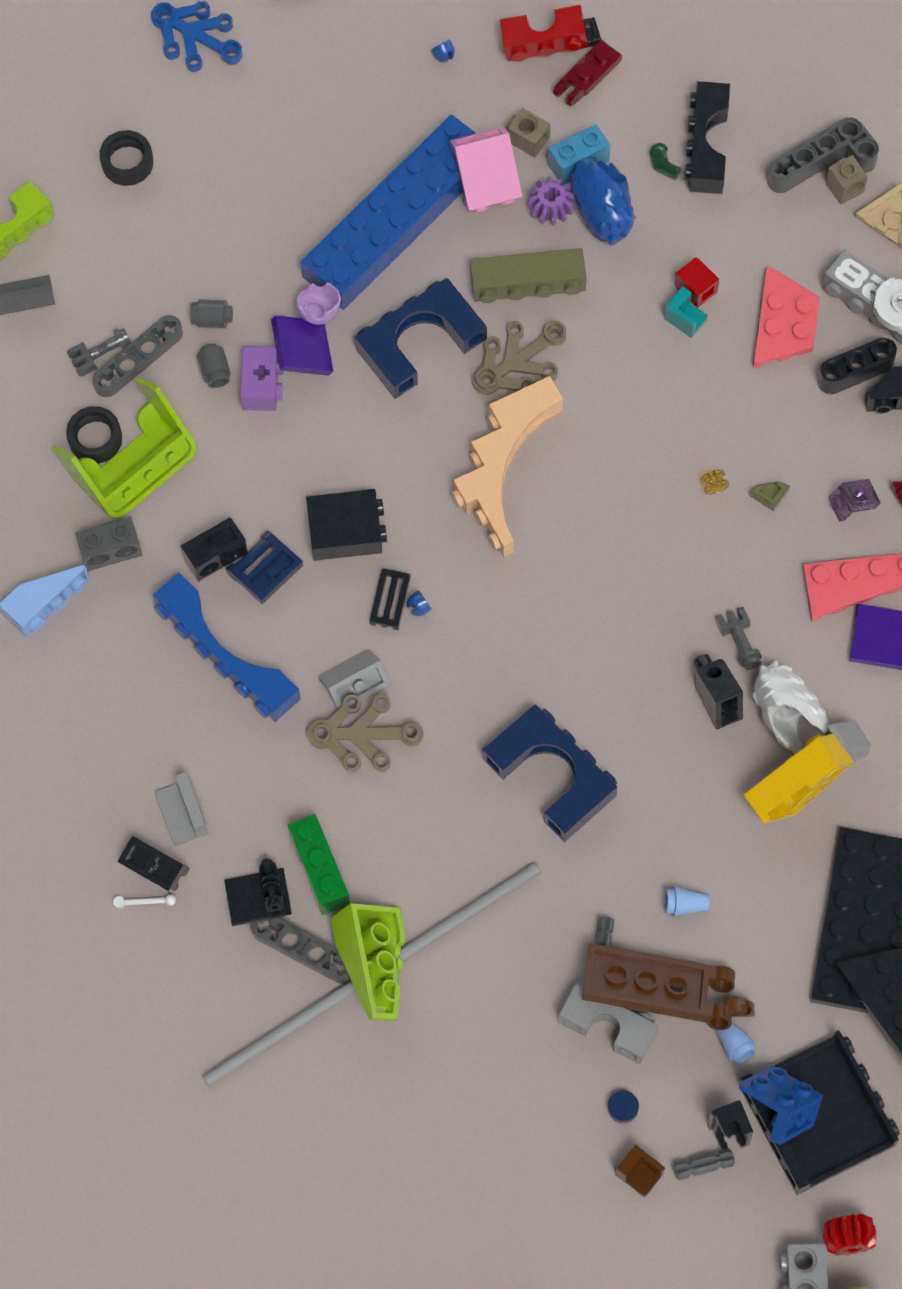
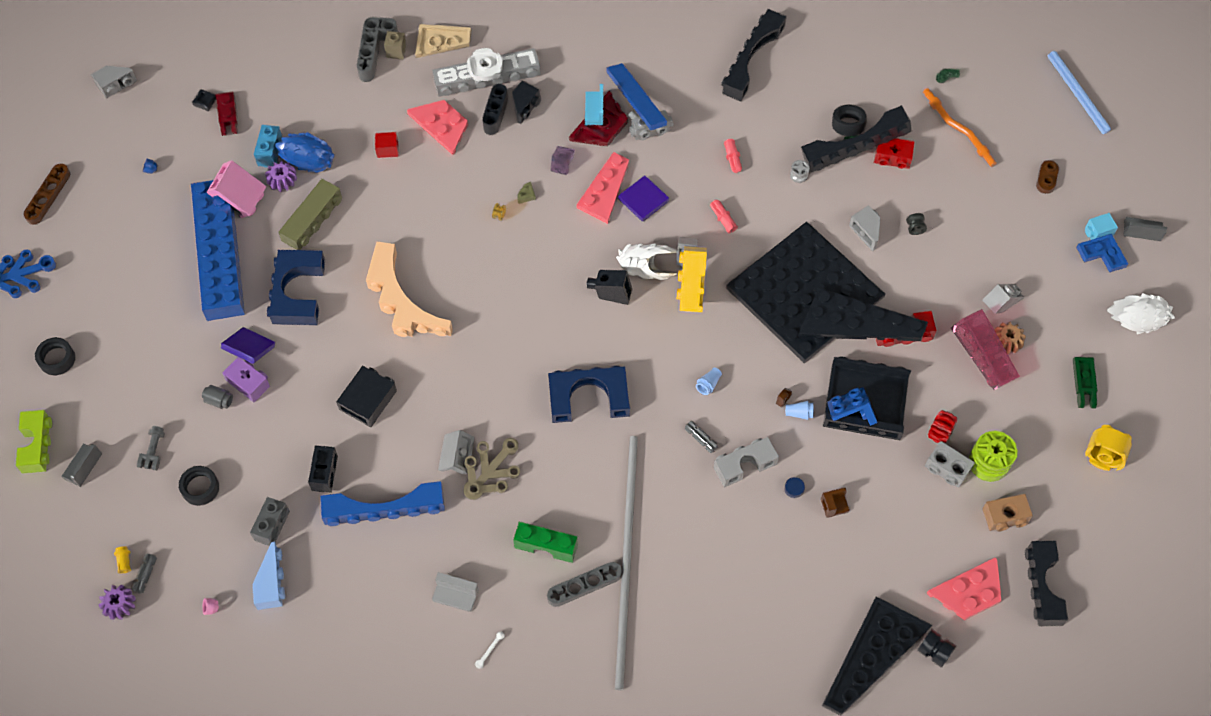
camera: 55 degrees left, 5 degrees down
(134, 353) = (170, 432): dark grey beam -> none
(142, 464) = (238, 471): lime windscreen -> none
(152, 864) = (474, 628): black hinge -> none
(211, 313) = (186, 377): dark grey brick -> none
(258, 895) = (537, 585): black hinge -> none
(270, 573) = (360, 452): dark blue plate -> none
(318, 304) = (234, 318): lavender hair -> none
(370, 948) = (611, 548): lime wedge -> none
(385, 621) = (436, 416): black tile -> none
(421, 604) = (441, 390): blue hinge -> none
(515, 360) = (350, 254): dark tan plant -> none
(528, 142) = (235, 154): dark tan brick -> none
(565, 34) = (181, 127): red arch -> none
(646, 980) = (740, 428): reddish brown hinge -> none
(660, 161) = (306, 115): clear green arm -> none
(684, 314) = (397, 163): teal panel -> none
(703, 1164) = (853, 470): dark grey axle -> none
(707, 165) = (330, 97): black arch -> none
(730, 1121) = (847, 437): black hinge -> none
(749, 657) = (580, 255): dark grey hinge -> none

